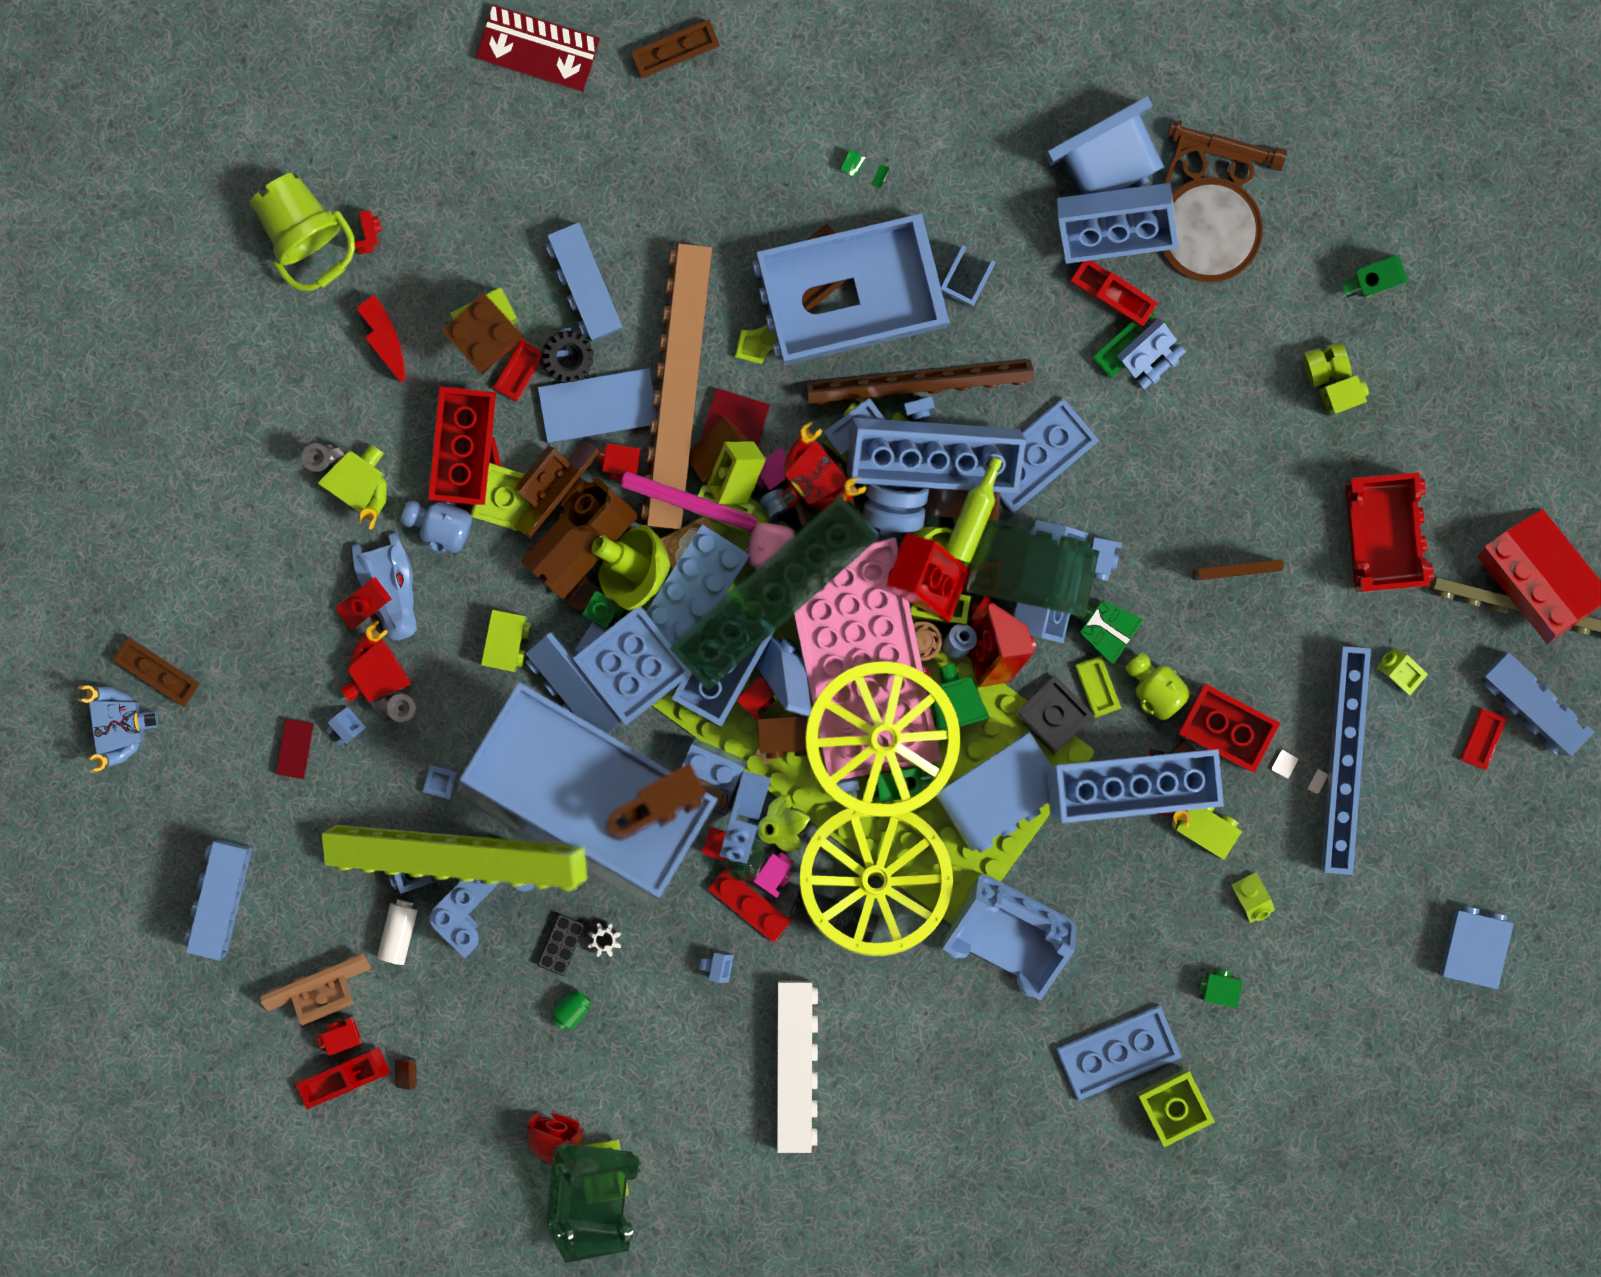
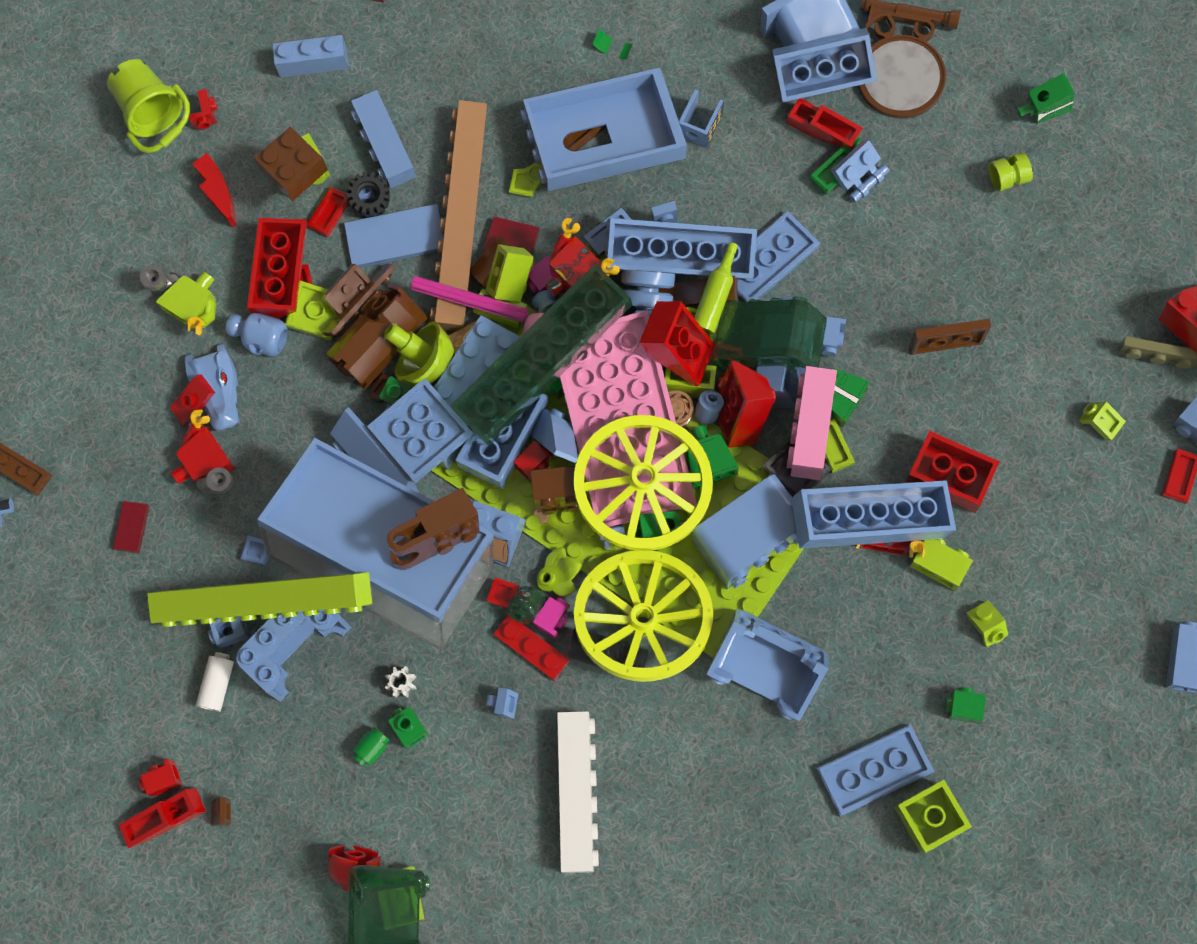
camera: 10 degrees right, 15 degrees down
(219, 899) = (54, 655): medium blue brick -> none
(320, 992) = (142, 738): medium nougat bracket -> none
(346, 726) = (175, 504): medium blue tile -> none
(496, 168) = (310, 56): none -> medium blue brick
(505, 641) = (313, 422): lime brick -> none
(561, 944) = (362, 689): black tile -> none
(612, 989) = (408, 726): none -> green brick
(618, 460) = (407, 270): red brick -> none
(748, 803) = (522, 558): medium blue panel -> none
(911, 382) = (700, 199): reddish brown plate -> none
(1075, 675) = (812, 429): none -> bright pink brick
(1158, 688) = (887, 441): lime piece -> none
(1285, 764) = (1005, 508): white sticker -> none
(1344, 395) = (1027, 191): lime brick -> none
(1345, 760) = (1060, 496): medium blue brick -> none
(1387, 532) = (1076, 299): red windscreen -> none

